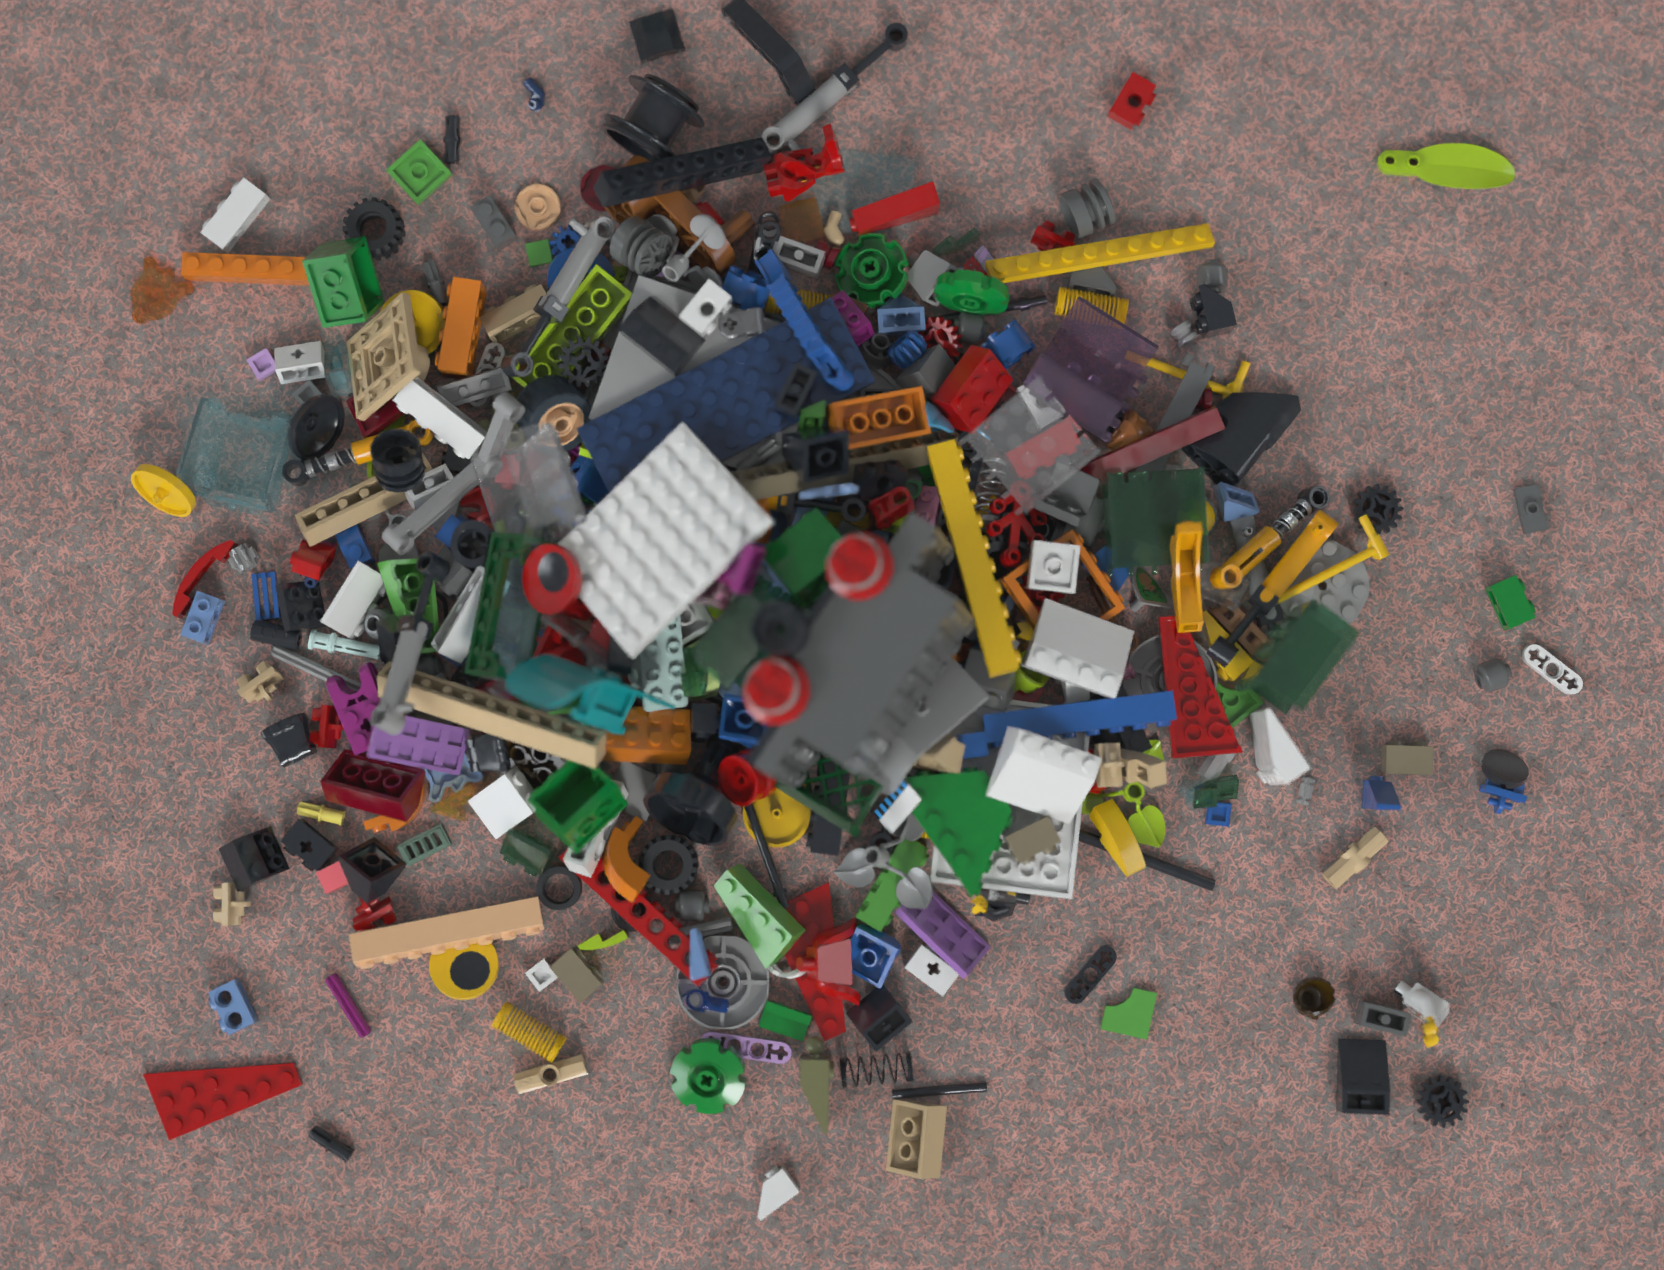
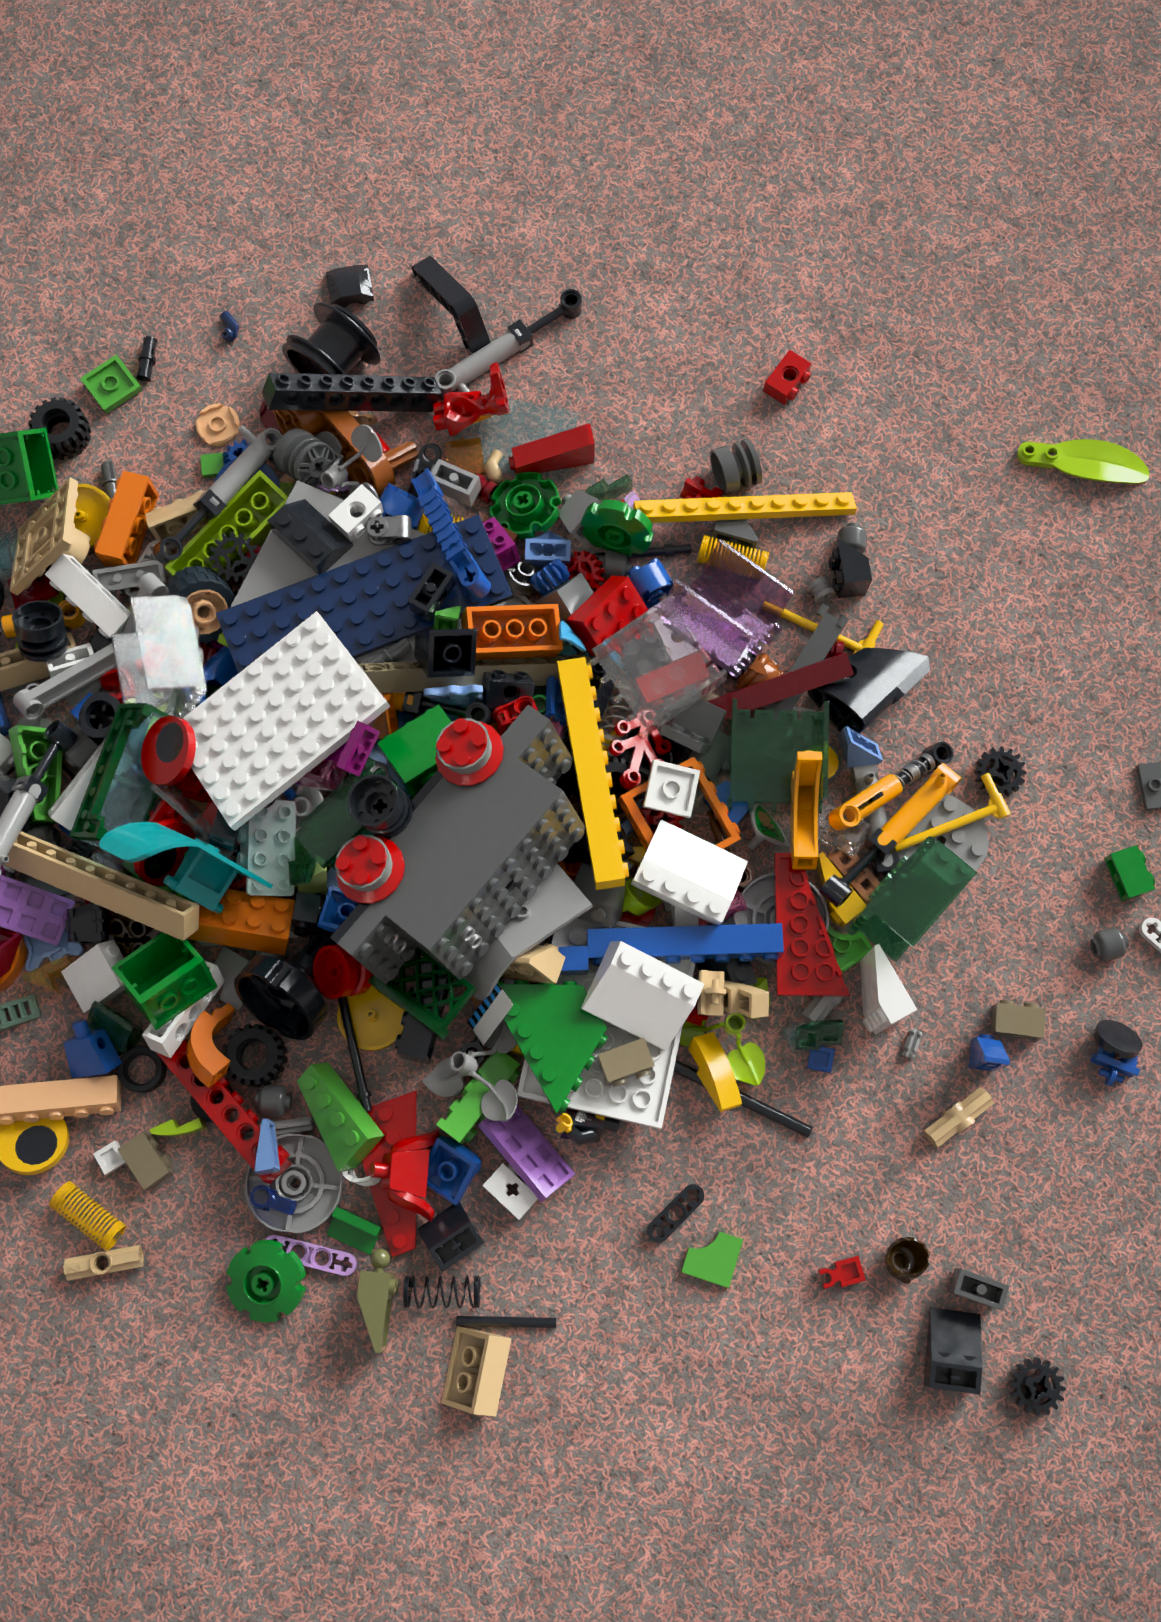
camera: 10 degrees right, 10 degrees down
(493, 223) = (173, 433): dark grey brick -> none
(509, 877) = (90, 1051): none -> blue torso
(776, 1191) = (321, 1413): white slope -> none
(927, 485) = (554, 701): none -> blue tile
(1256, 1014) = (846, 1272): none -> red plate
(1426, 1007) = (1024, 1280): white torso -> none

